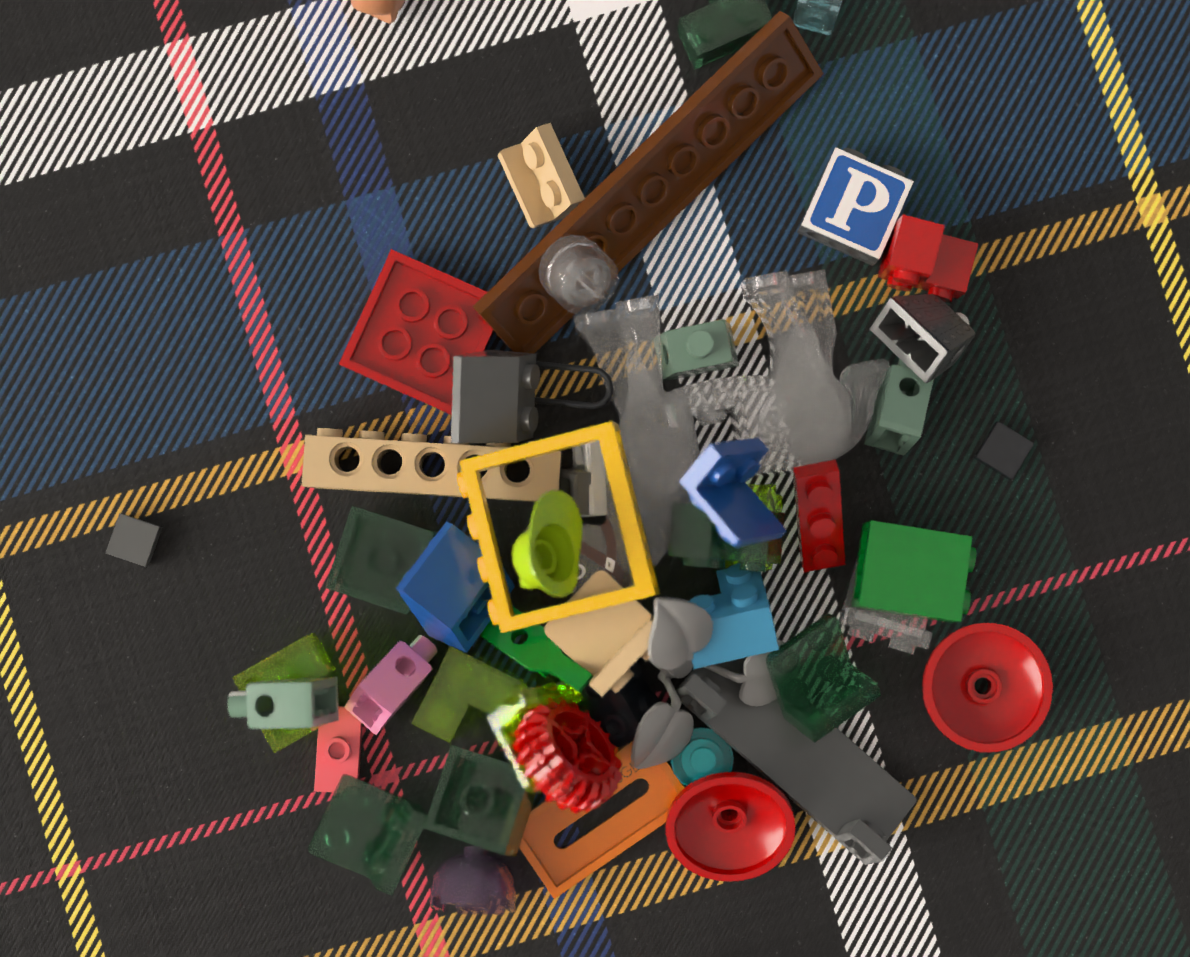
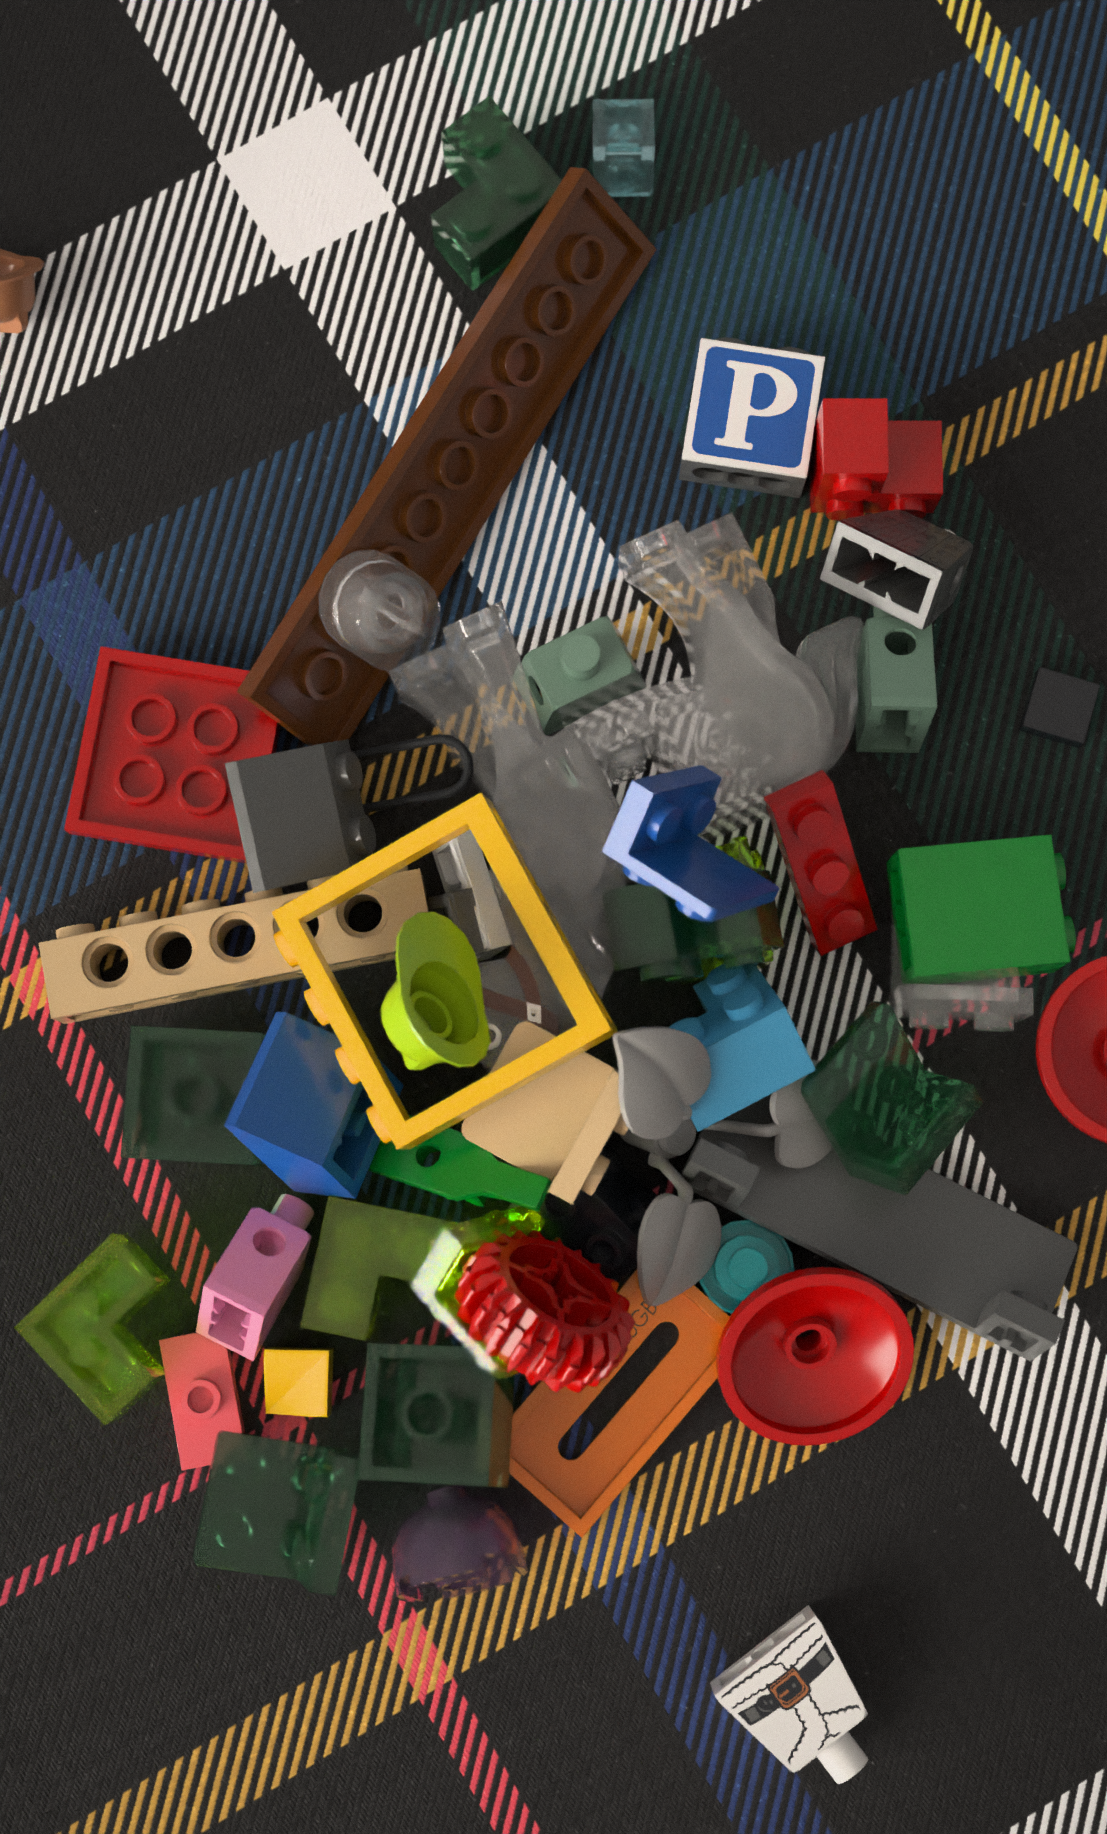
camera: 15 degrees left, 5 degrees down
(287, 703) = (102, 1340): sand green torso -> none
(401, 754) = (298, 1381): none -> yellow slope
(541, 177) = (291, 488): tan bracket -> none

